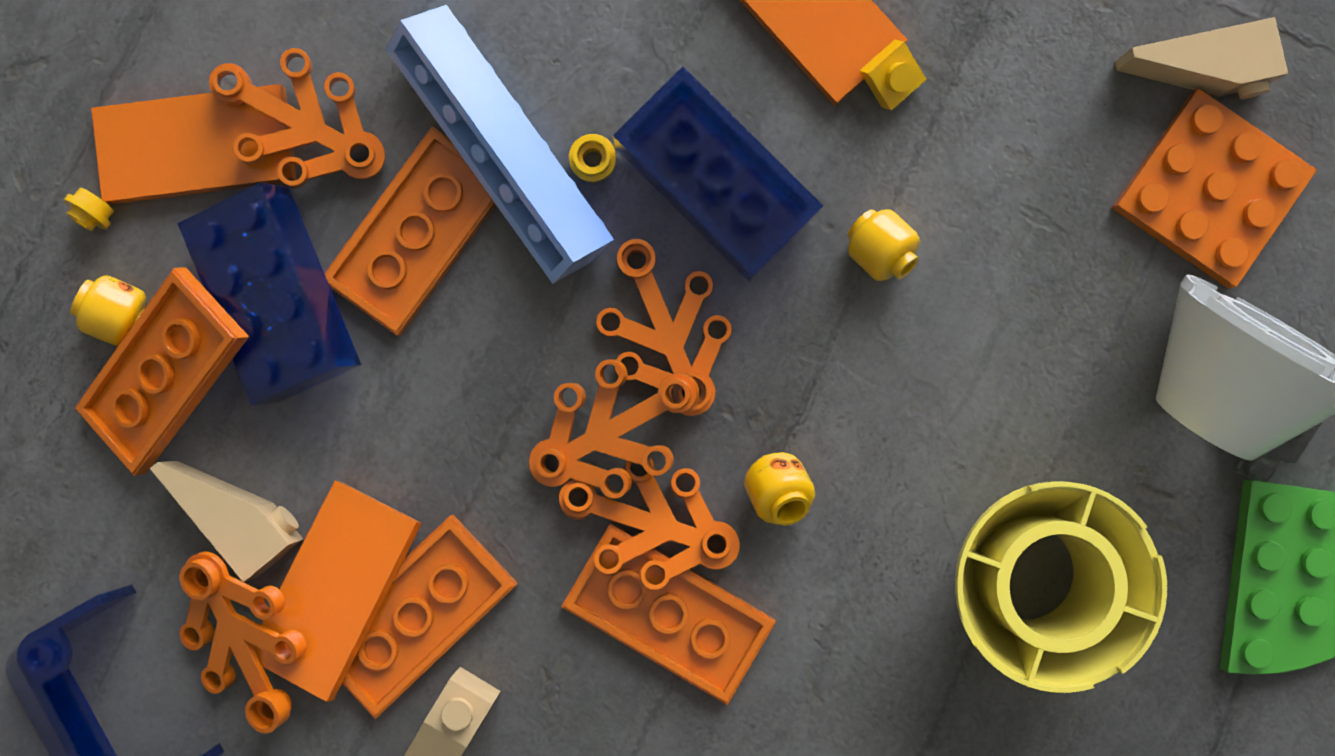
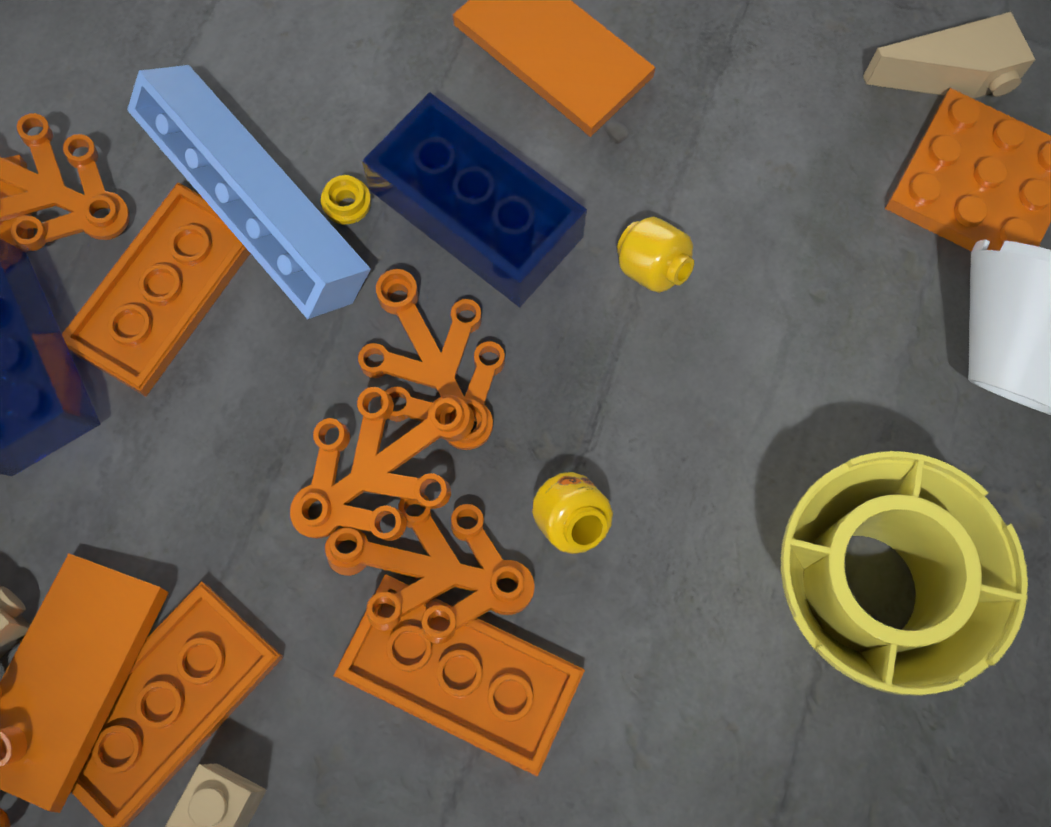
camera: 10 degrees left, 15 degrees down
(893, 74) = (644, 98): yellow plate -> none

